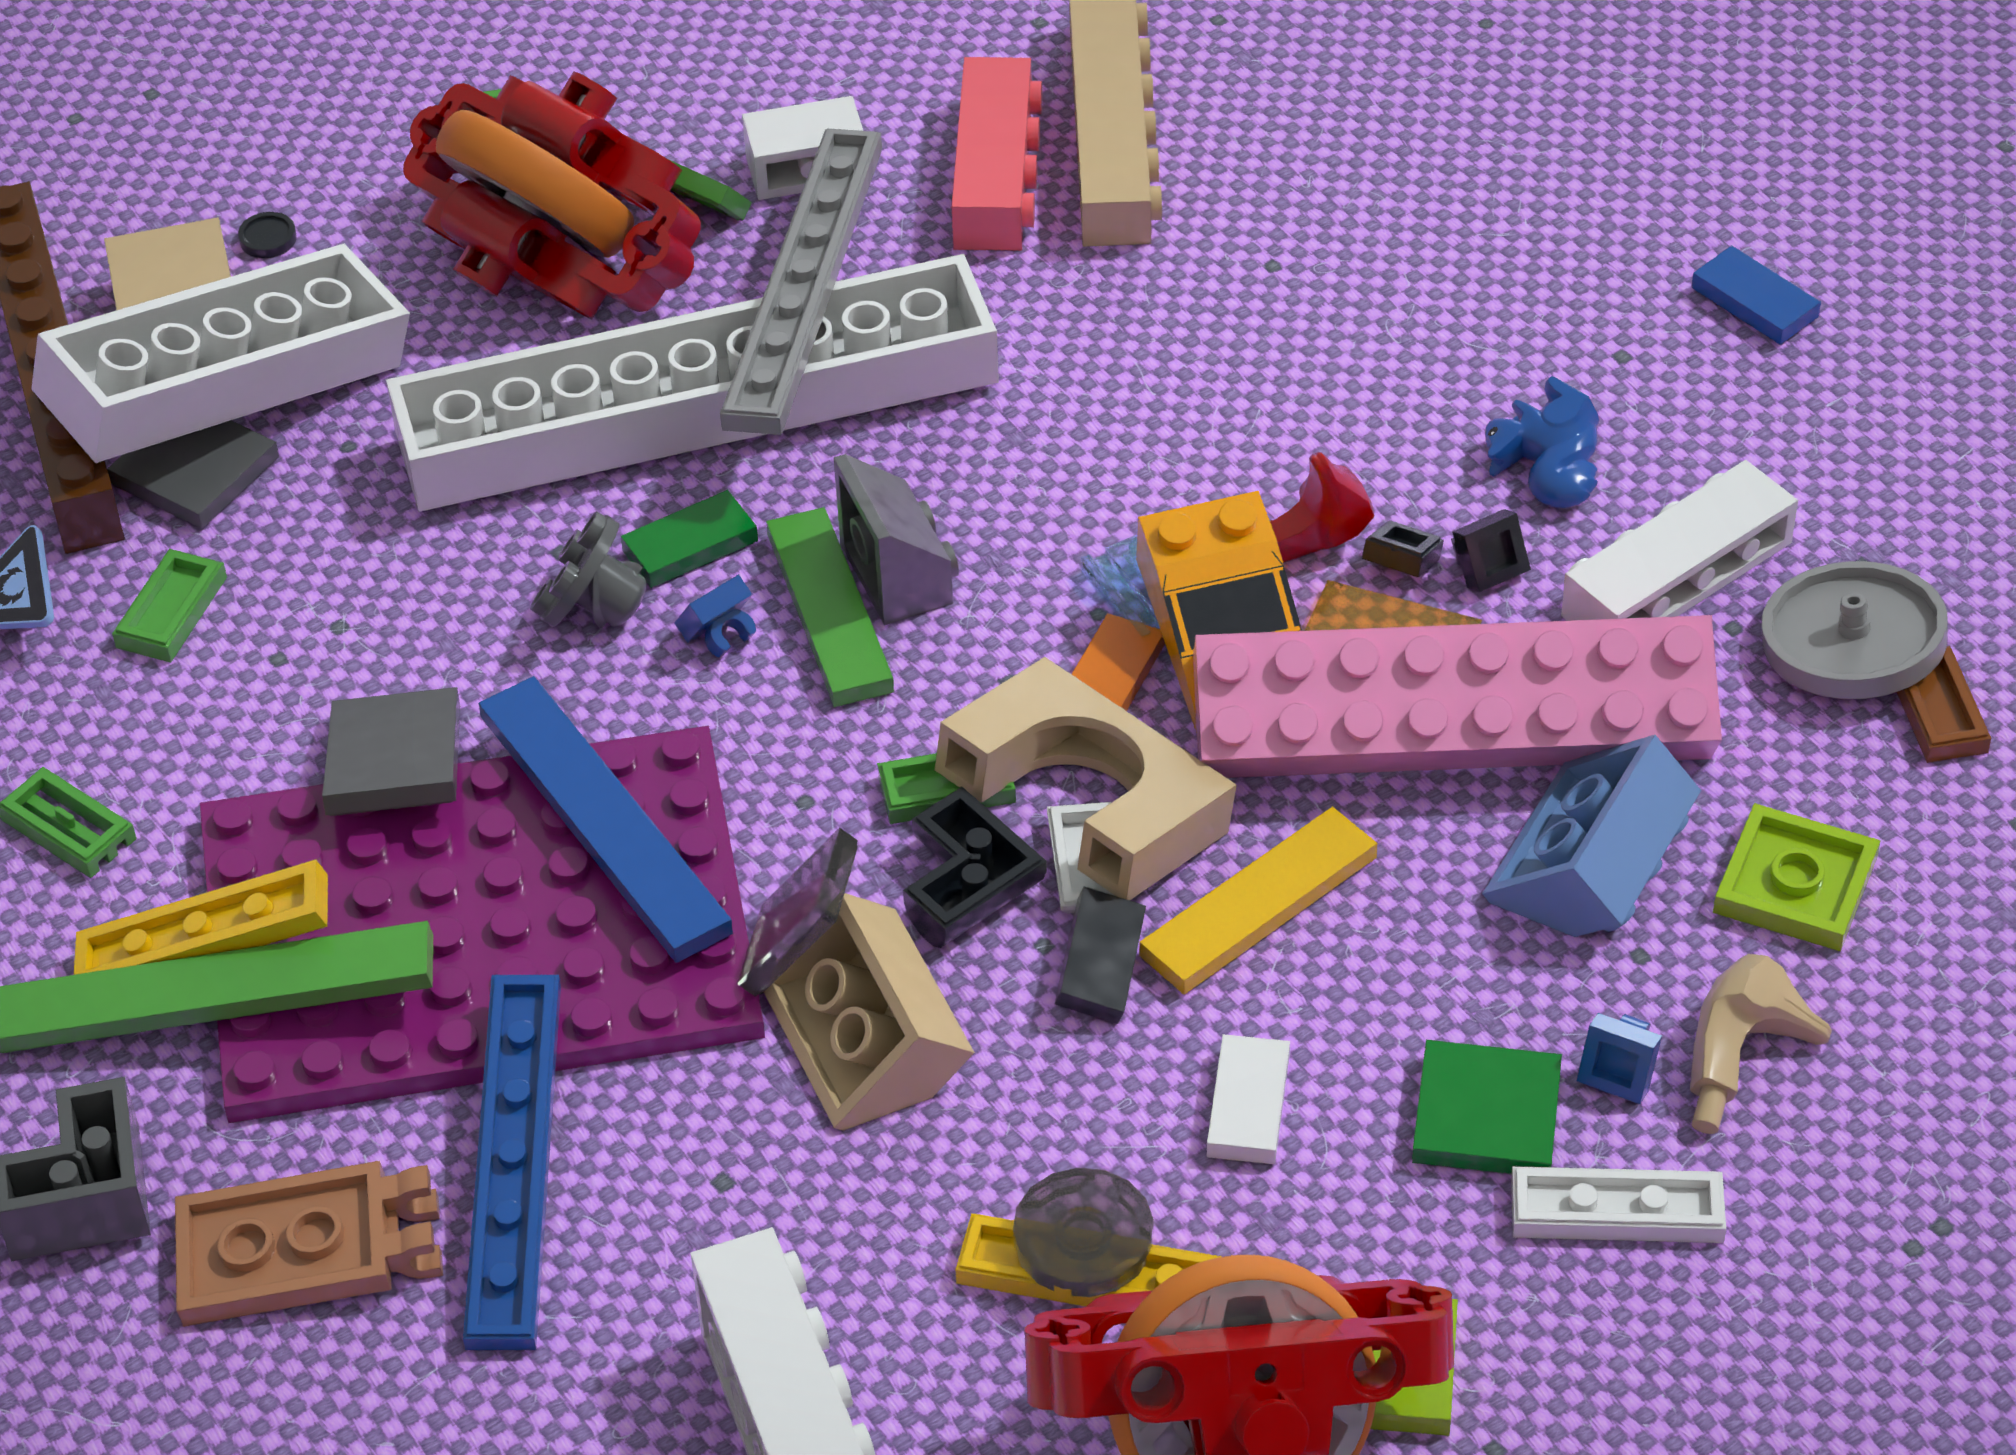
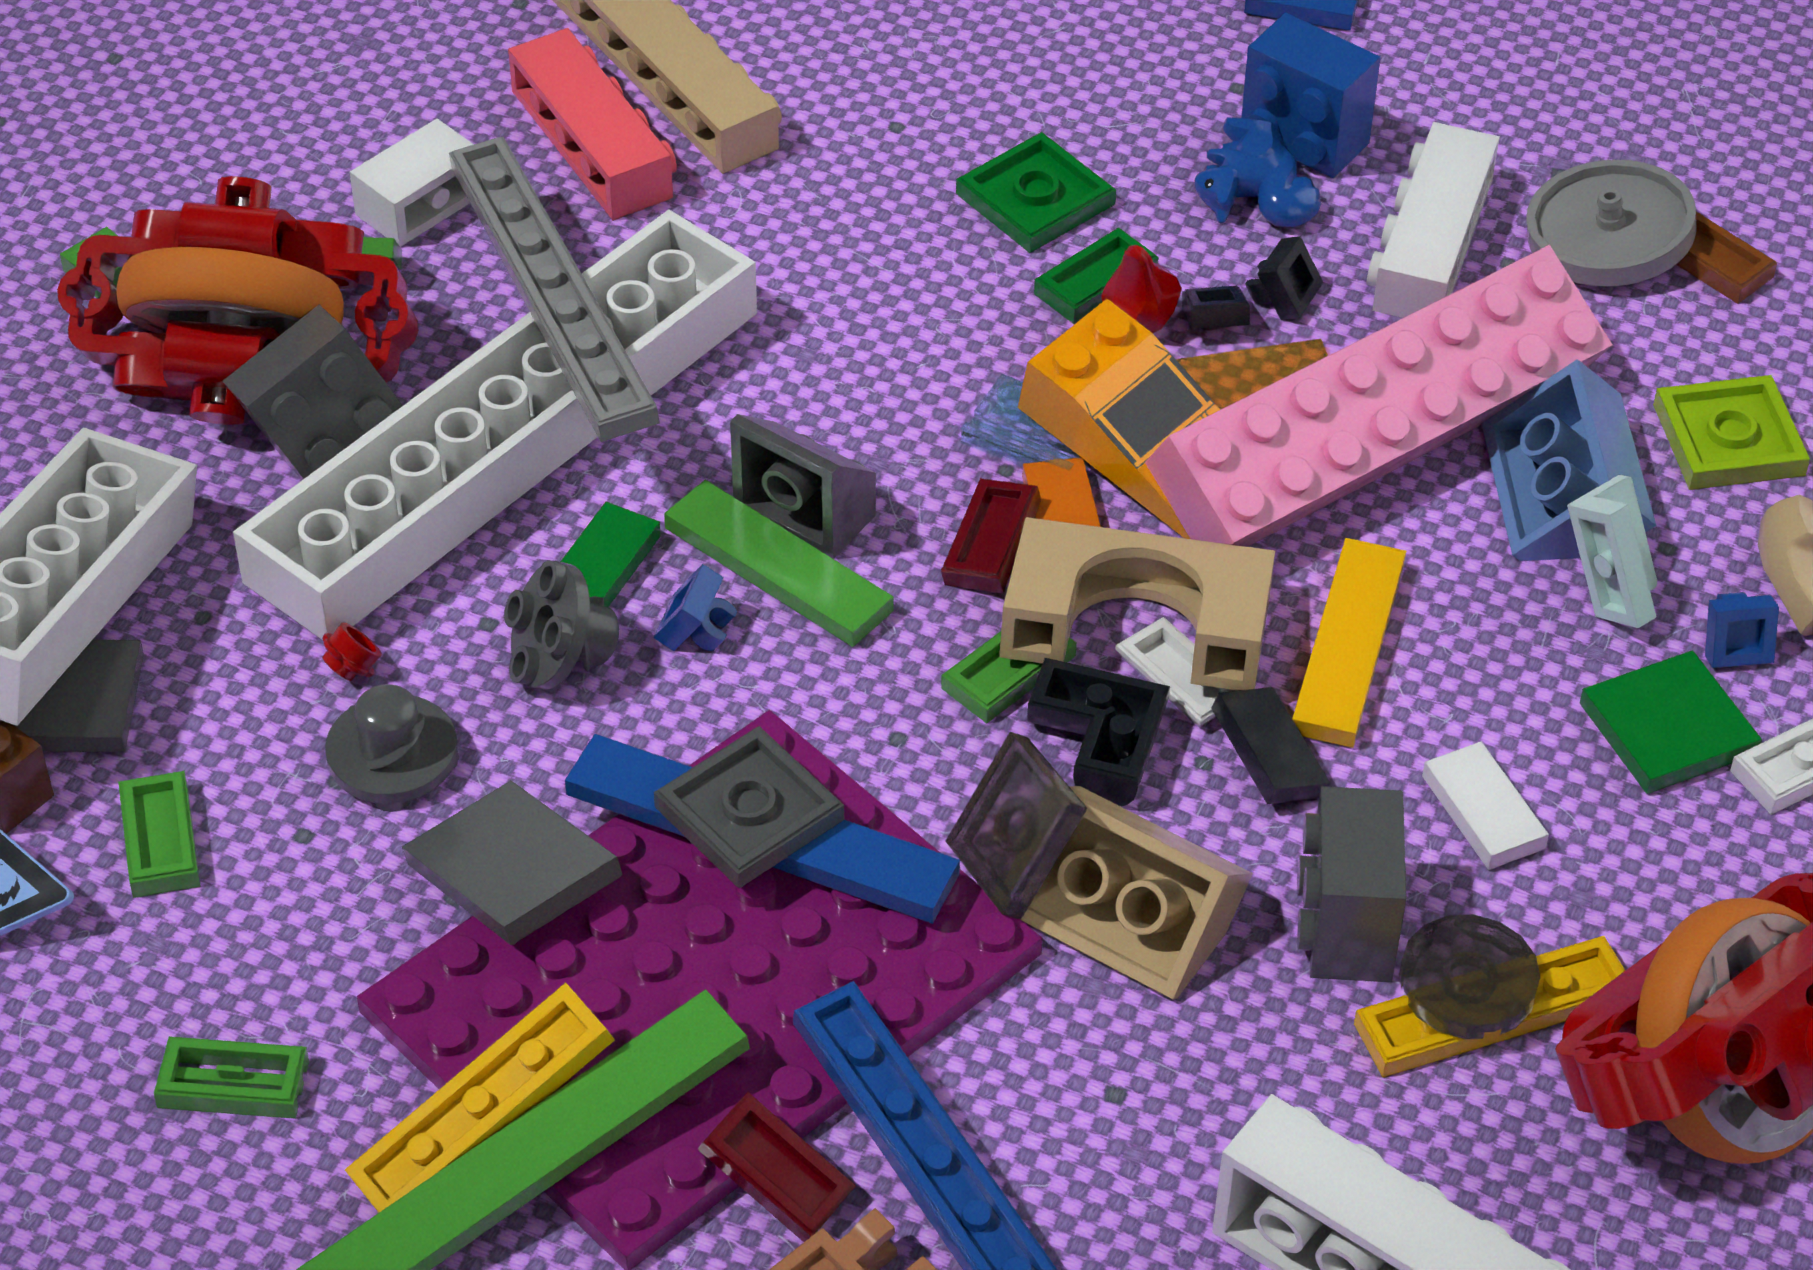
camera: 35 degrees left, 0 degrees up
(389, 1096) = (776, 1167): none -> dark red tile
(391, 616) = (391, 747): none -> dark grey plate
(422, 524) = (350, 652): none -> red plate
(539, 287) = (312, 392): none -> dark grey brick
(595, 792) = (749, 806): none -> dark grey tile
(1041, 1098) = (1353, 884): none -> dark grey brick
(1046, 637) = (990, 535): none -> dark red tile
(1290, 468) = (1078, 282): none -> green tile
(1340, 376) = (1035, 192): none -> green tile
(1553, 926) = (1615, 552): none -> light aqua panel
(1648, 386) = (1312, 91): none -> blue brick

